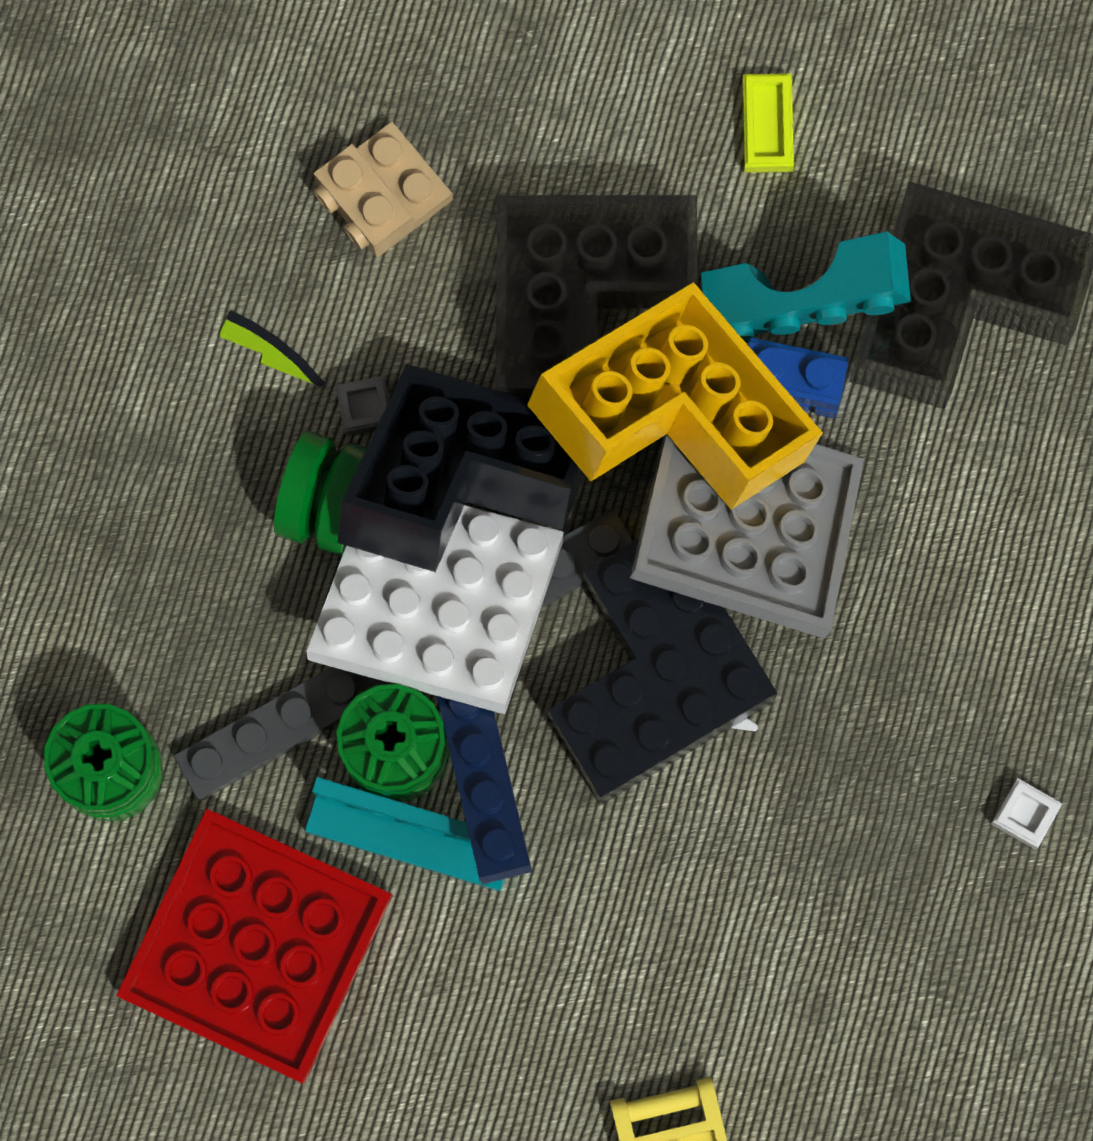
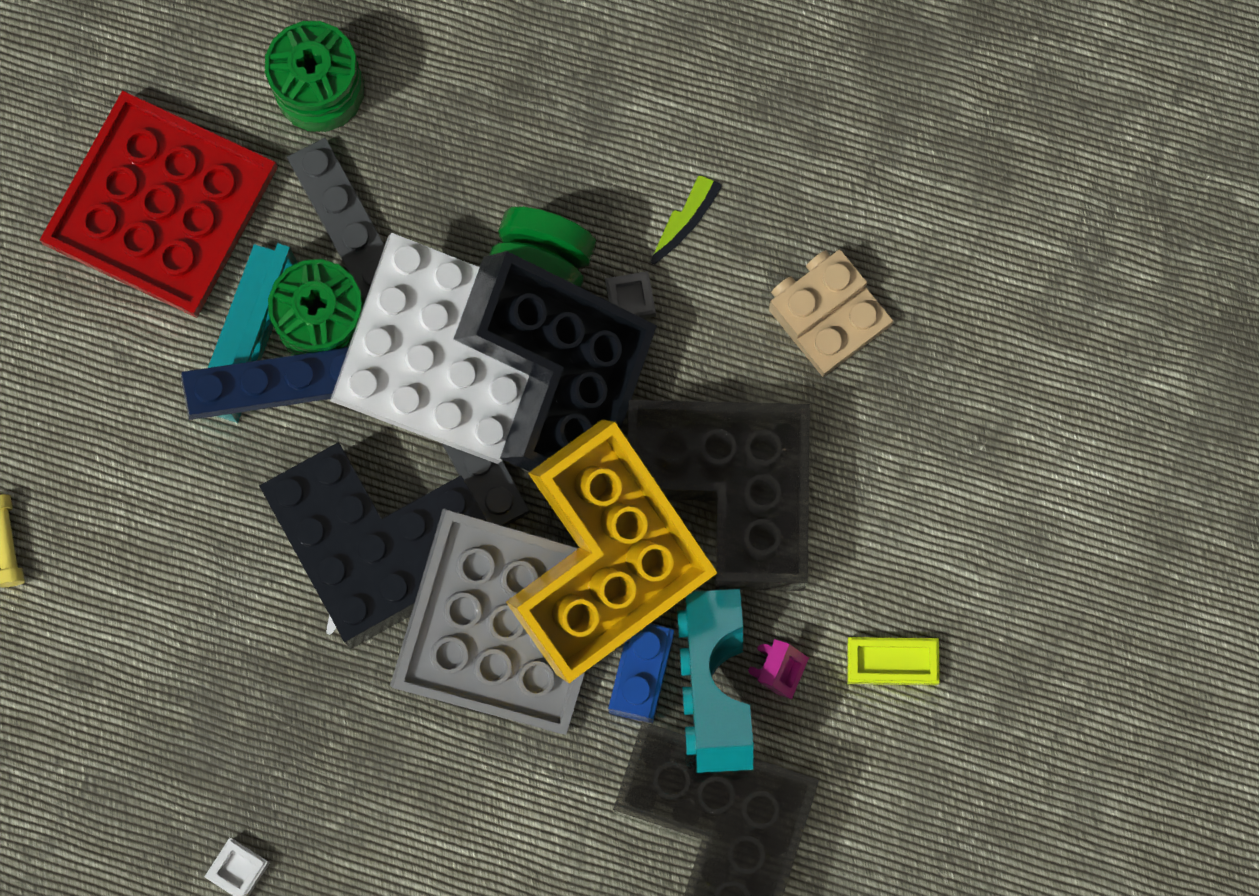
camera: 90 degrees right, 0 degrees up
(784, 233) = (781, 669): none -> dark pink tile

